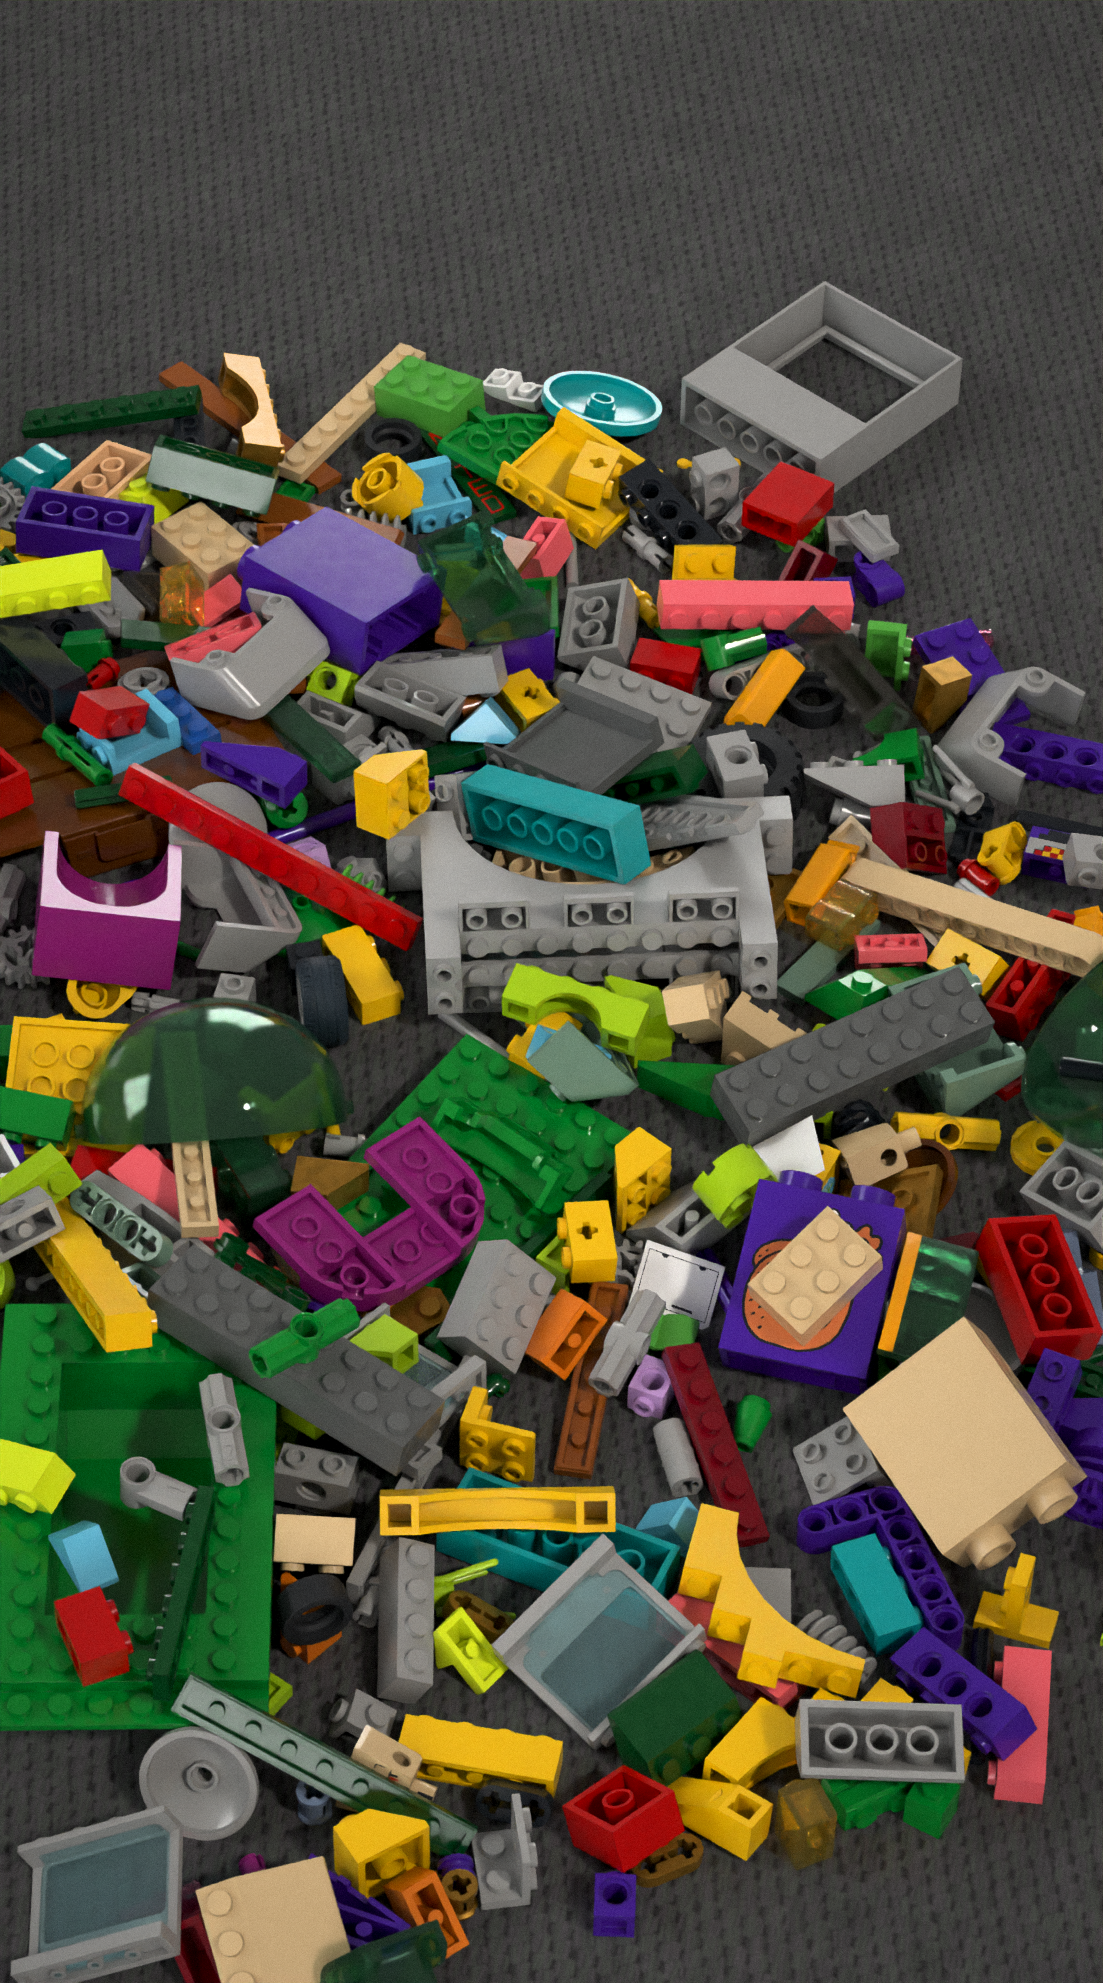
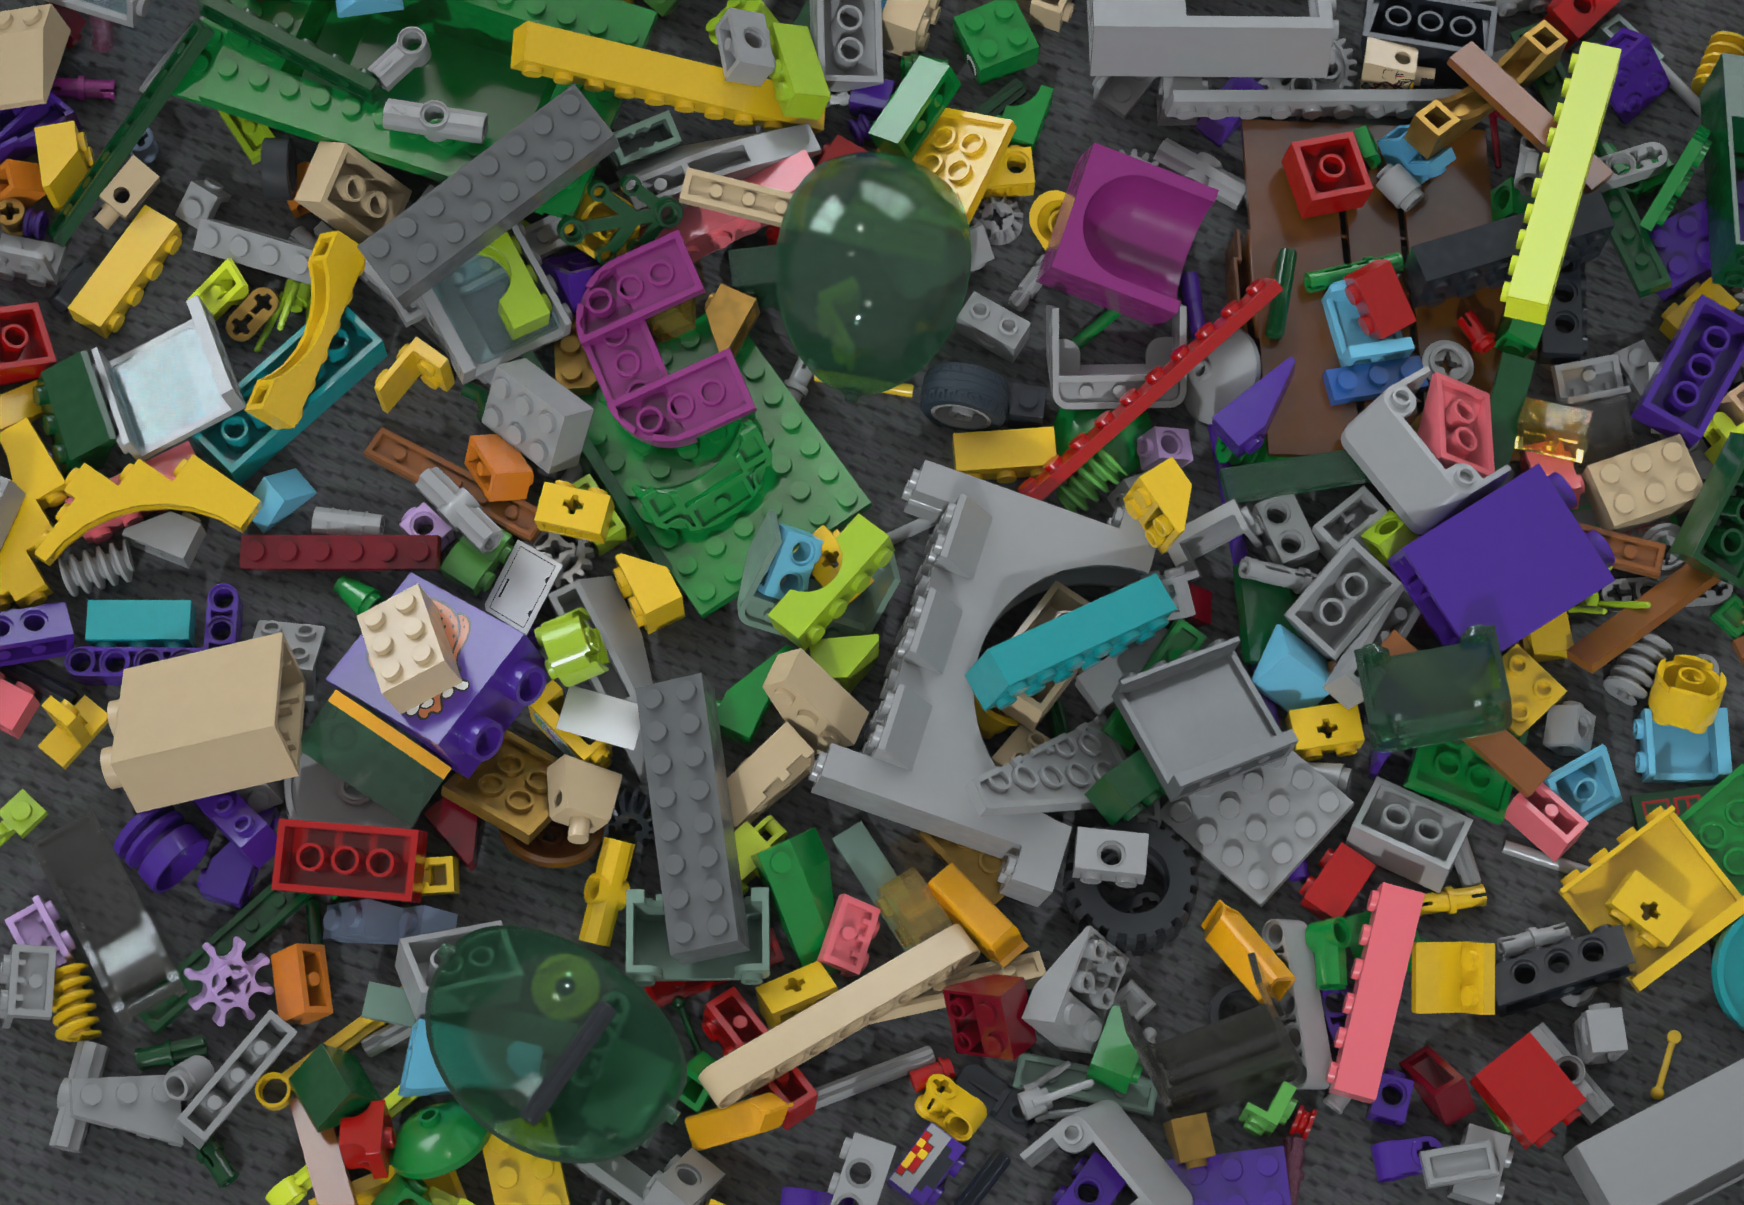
camera: 110 degrees right, 25 degrees up
(119, 1226) = (727, 135): sand green beam -> none
(304, 1338) = (463, 165): green piece -> none

